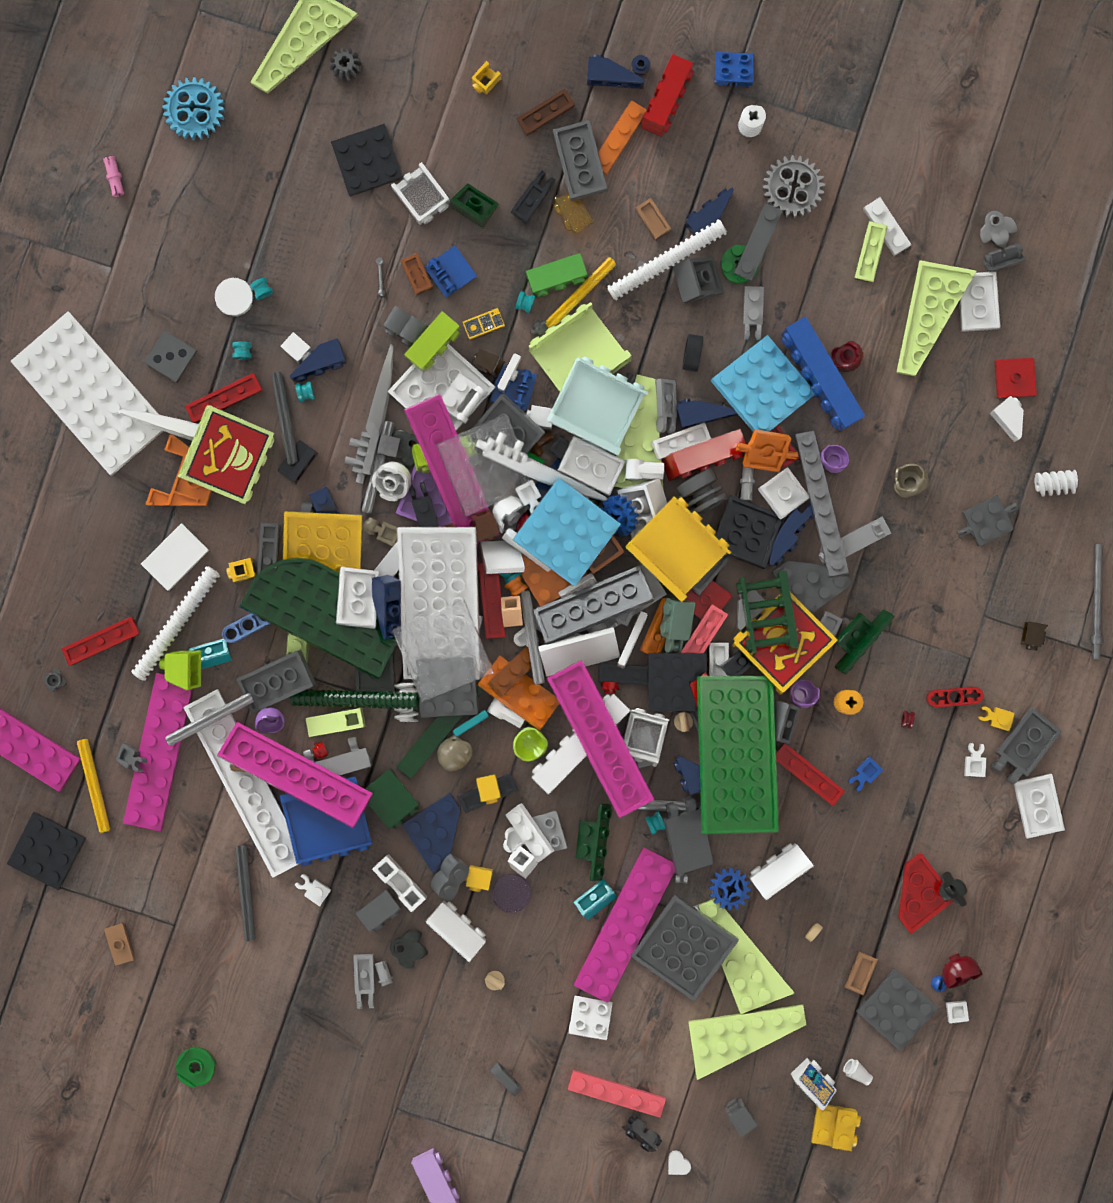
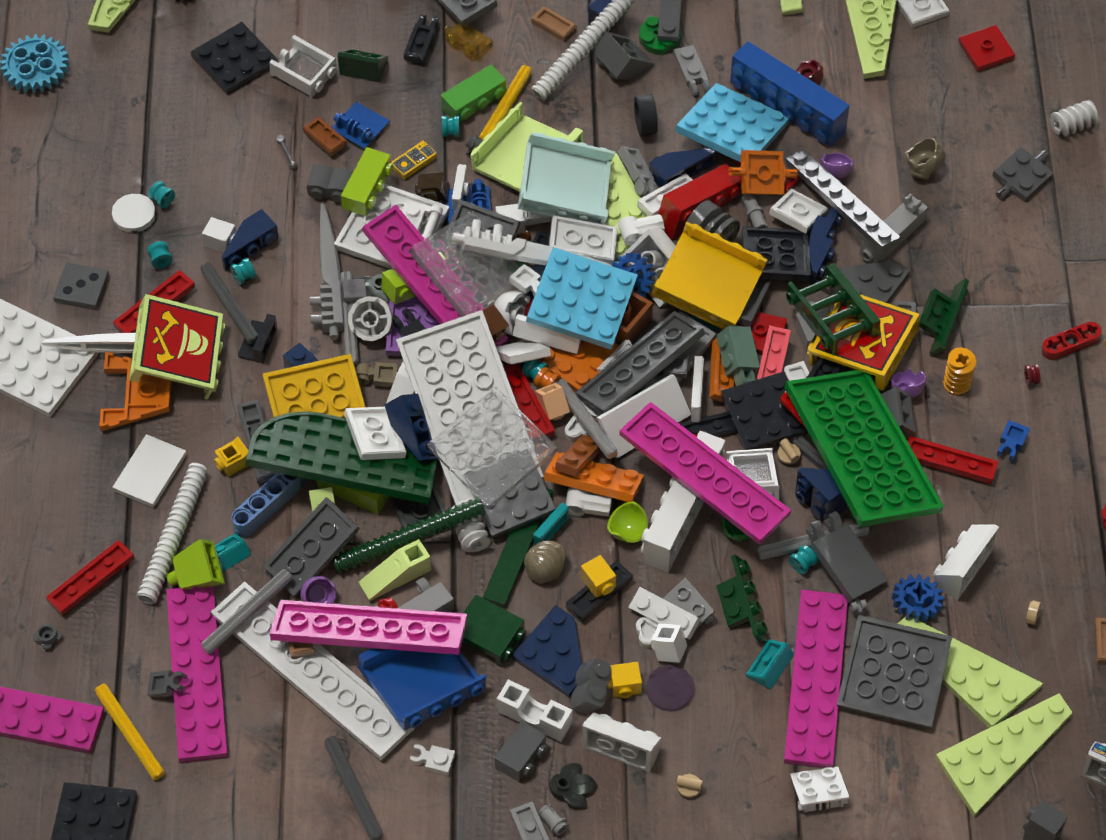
camera: 20 degrees left, 30 degrees down
(1009, 417) = (998, 79): white slope -> none

